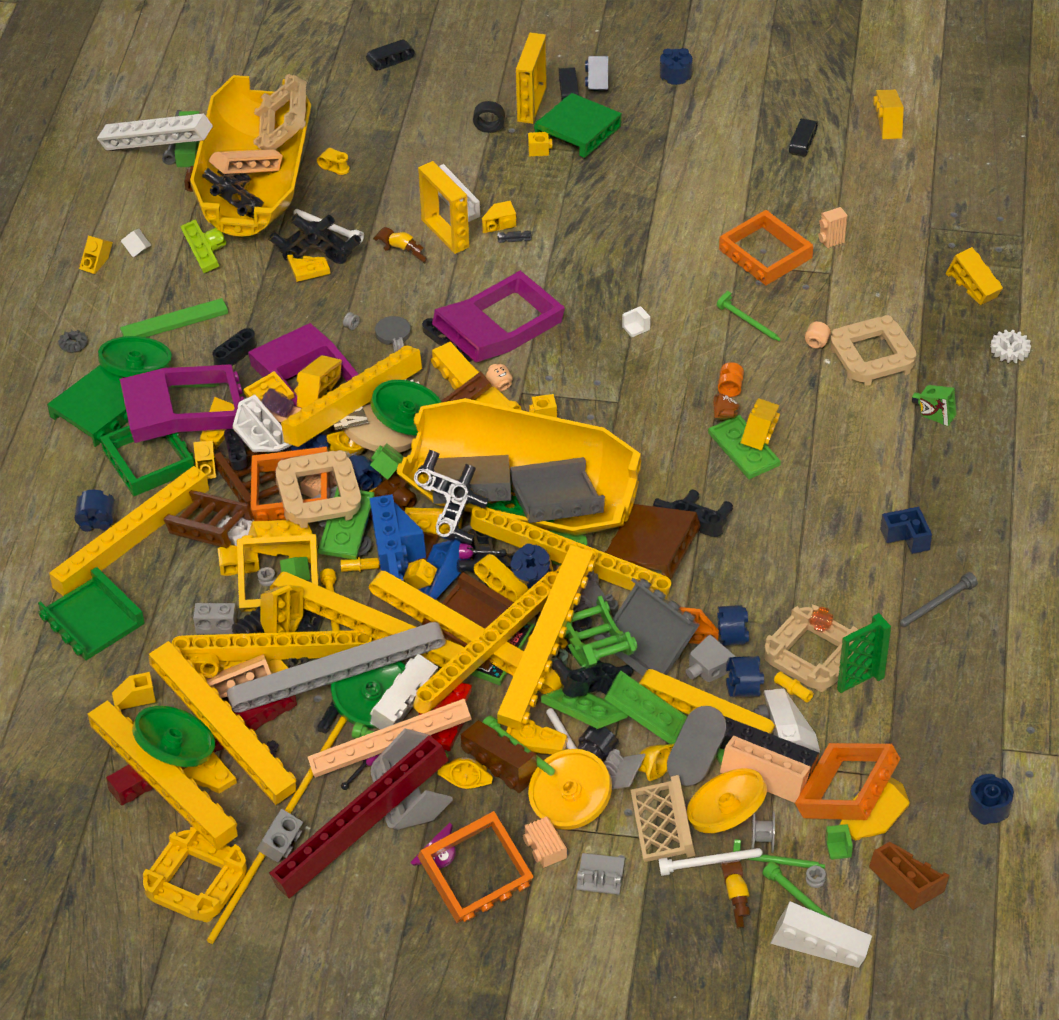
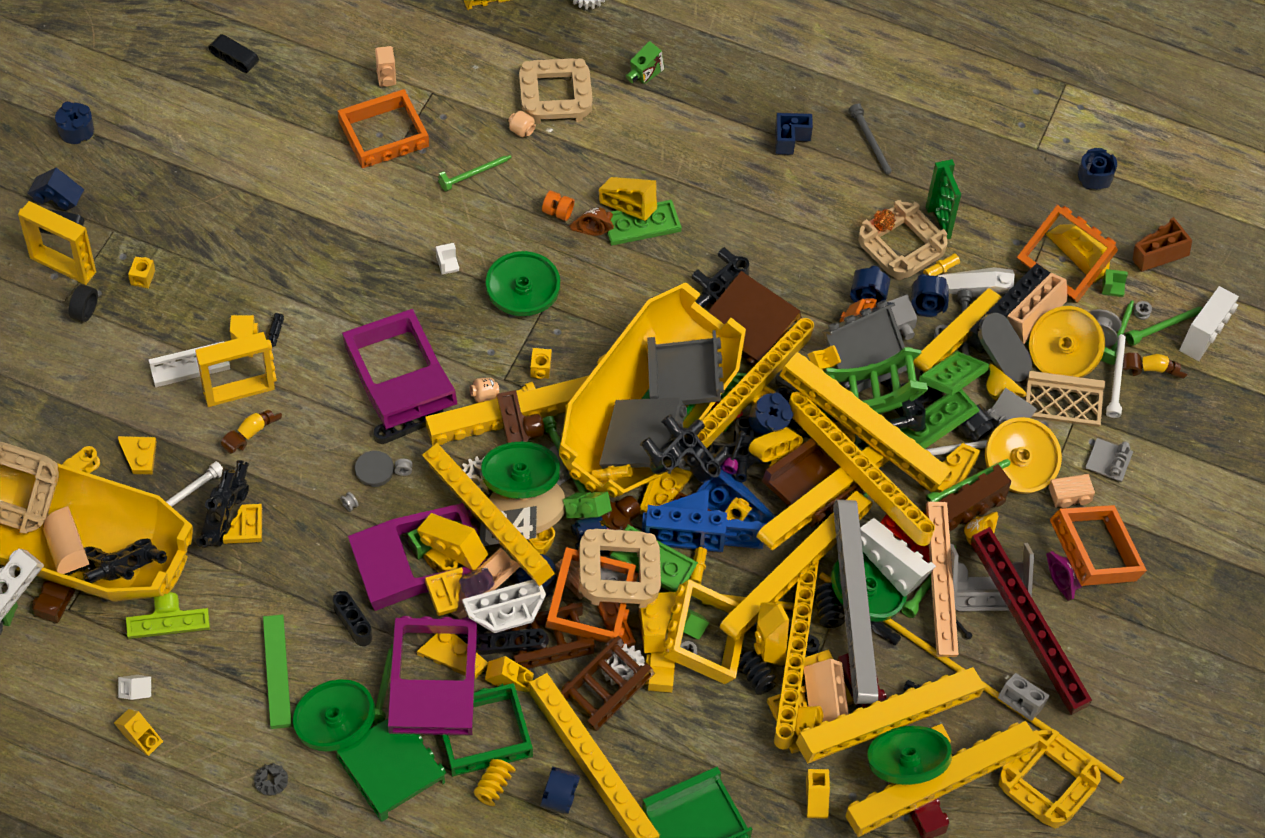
camera: 80 degrees left, 10 degrees up
(95, 471) = (492, 780): none -> yellow piece
(214, 618) = (738, 704): light grey brick -> none
(358, 191) = (139, 453): none -> yellow wing
(580, 122) = (128, 227): green panel -> none
(611, 591) = (825, 358): none -> yellow bracket
(626, 374) = (523, 283): none -> green dish

